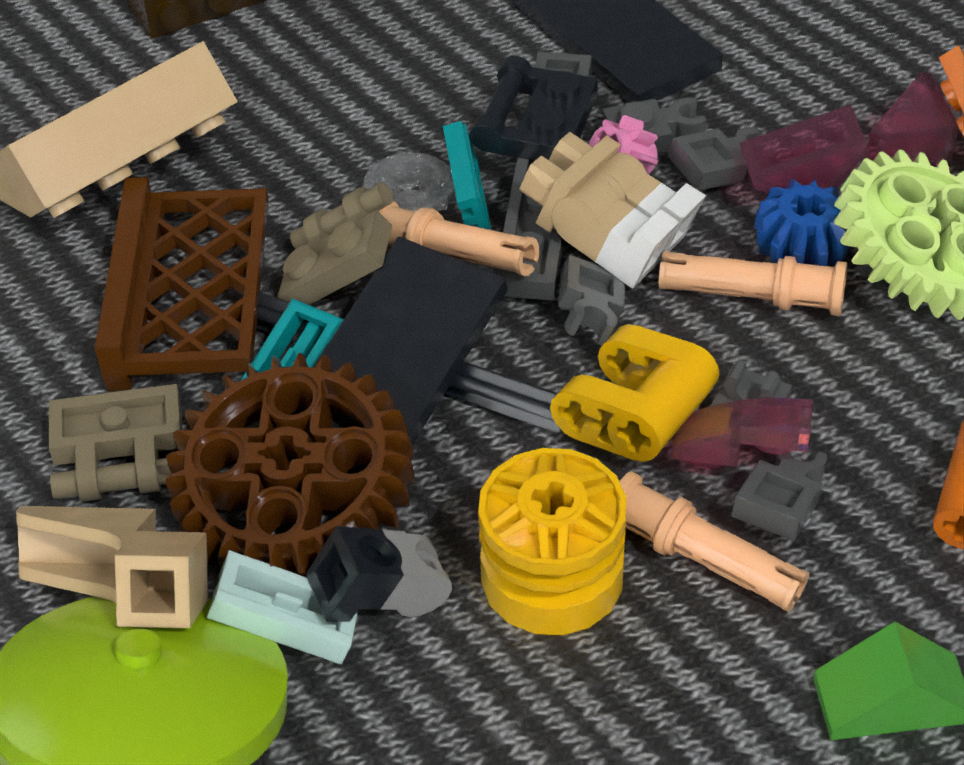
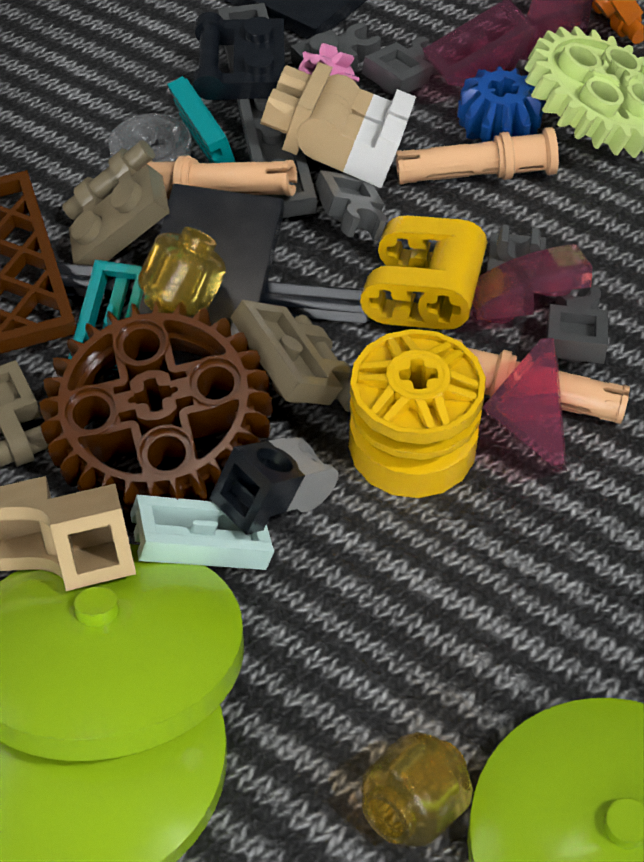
camera: 20 degrees left, 5 degrees up
(364, 331) = (182, 271): none -> clear yellow head
(450, 444) = (294, 354): none -> dark tan plate
(684, 564) = (531, 405): none -> clear pink slope

